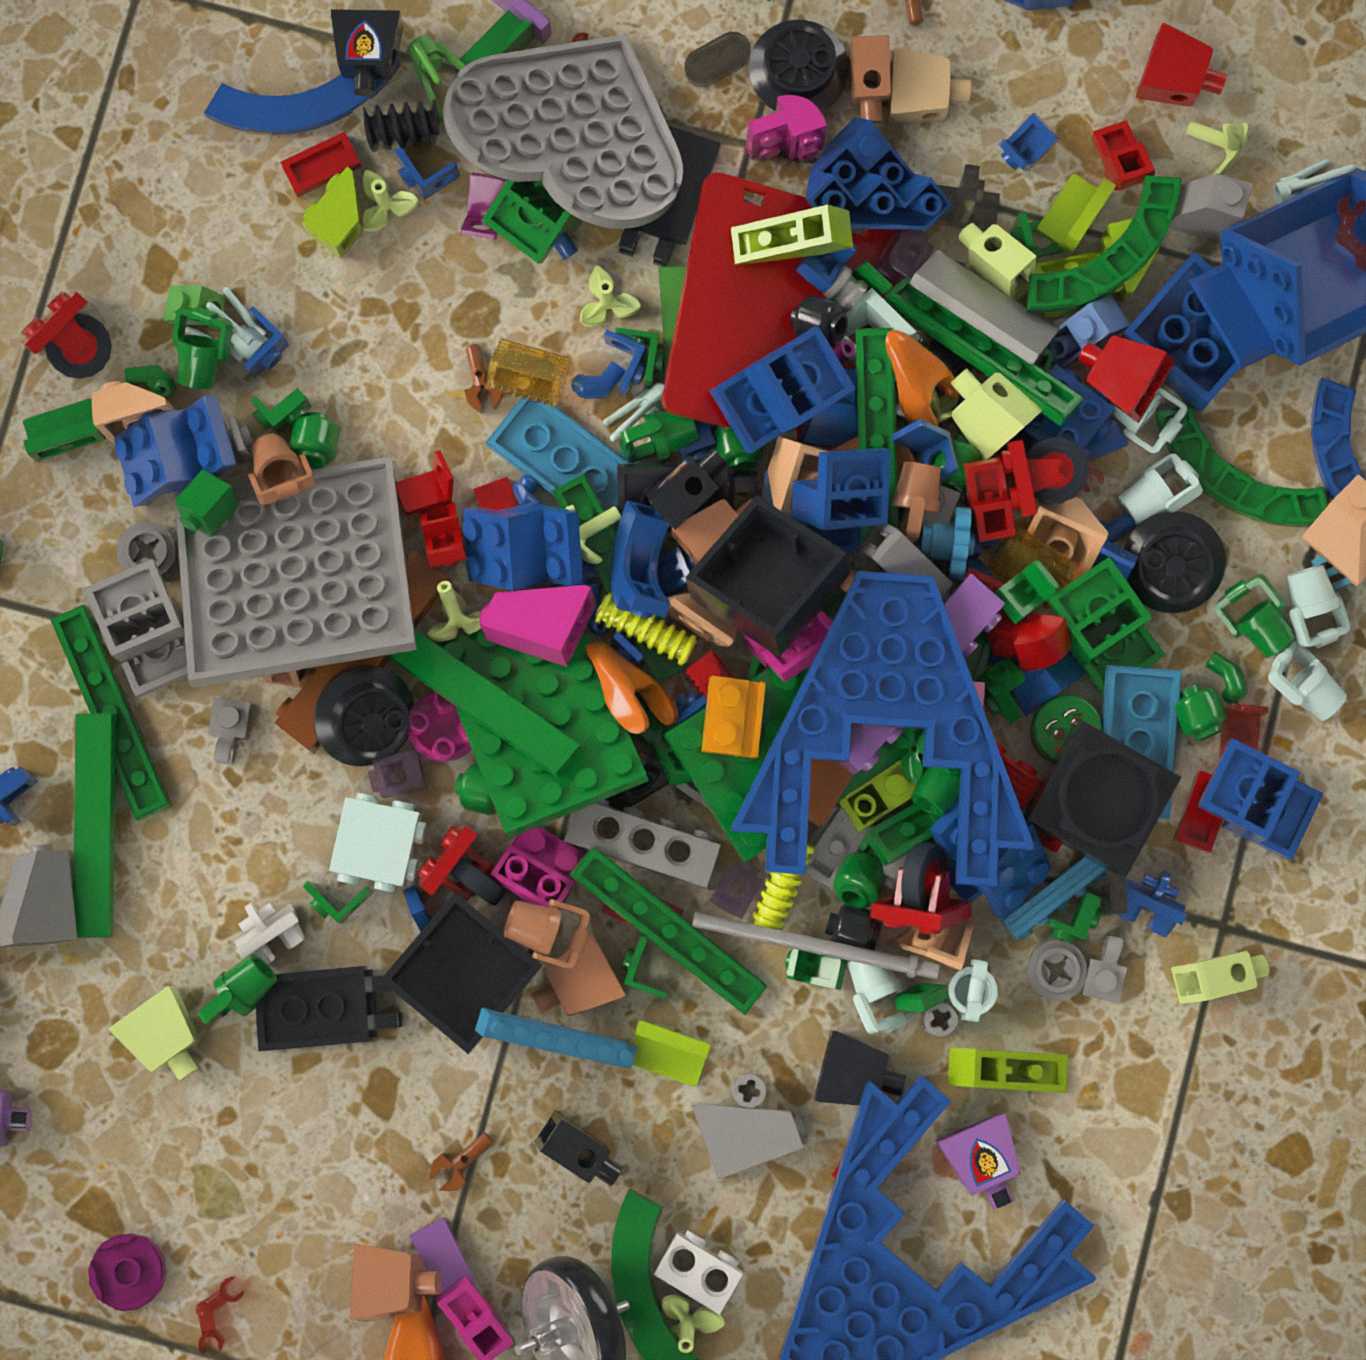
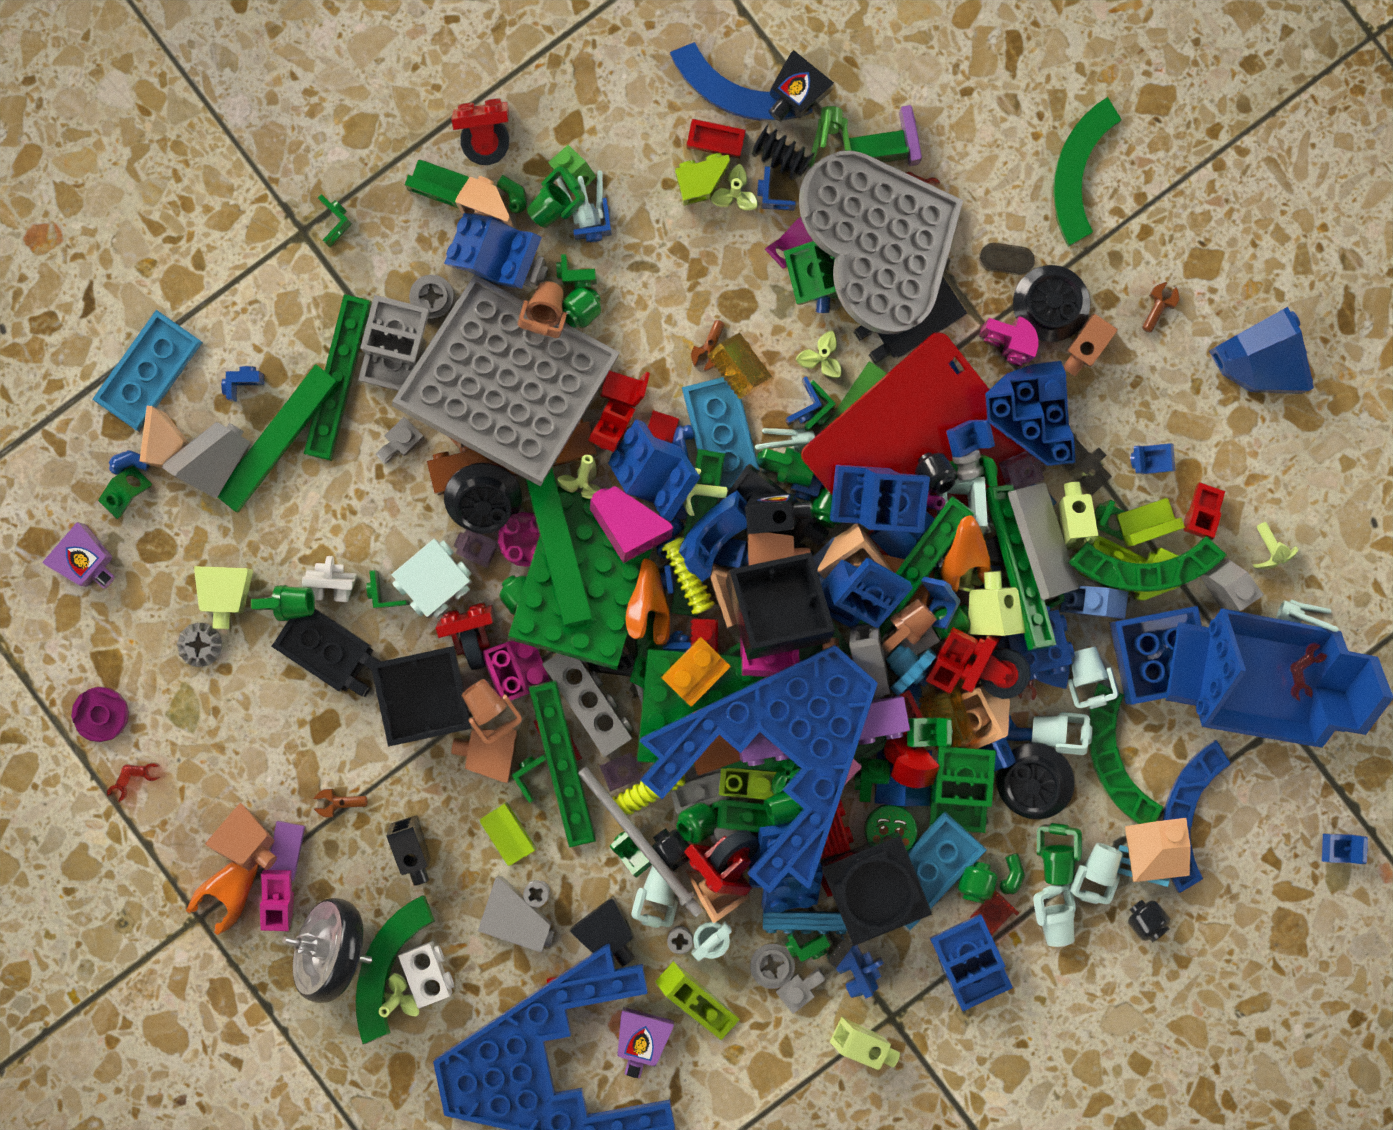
camera: 40 degrees right, 5 degrees up
(196, 1114) = (206, 655): none -> light grey gear
(206, 503) = (486, 298): green brick -> none
(416, 906) = (426, 635): blue tile -> none
(555, 1038) = (447, 776): dark azure piece -> none
(597, 386) = (775, 404): blue arm -> none
(793, 235) = (959, 410): lime slope -> none
(921, 997) = (678, 919): green tile -> none
(922, 88) = (1116, 374): tan torso -> none
(1127, 373) = (1094, 648): red torso -> none
(1178, 69) = (1283, 484): red torso -> none
(1197, 826) = (920, 946): red tile -> none

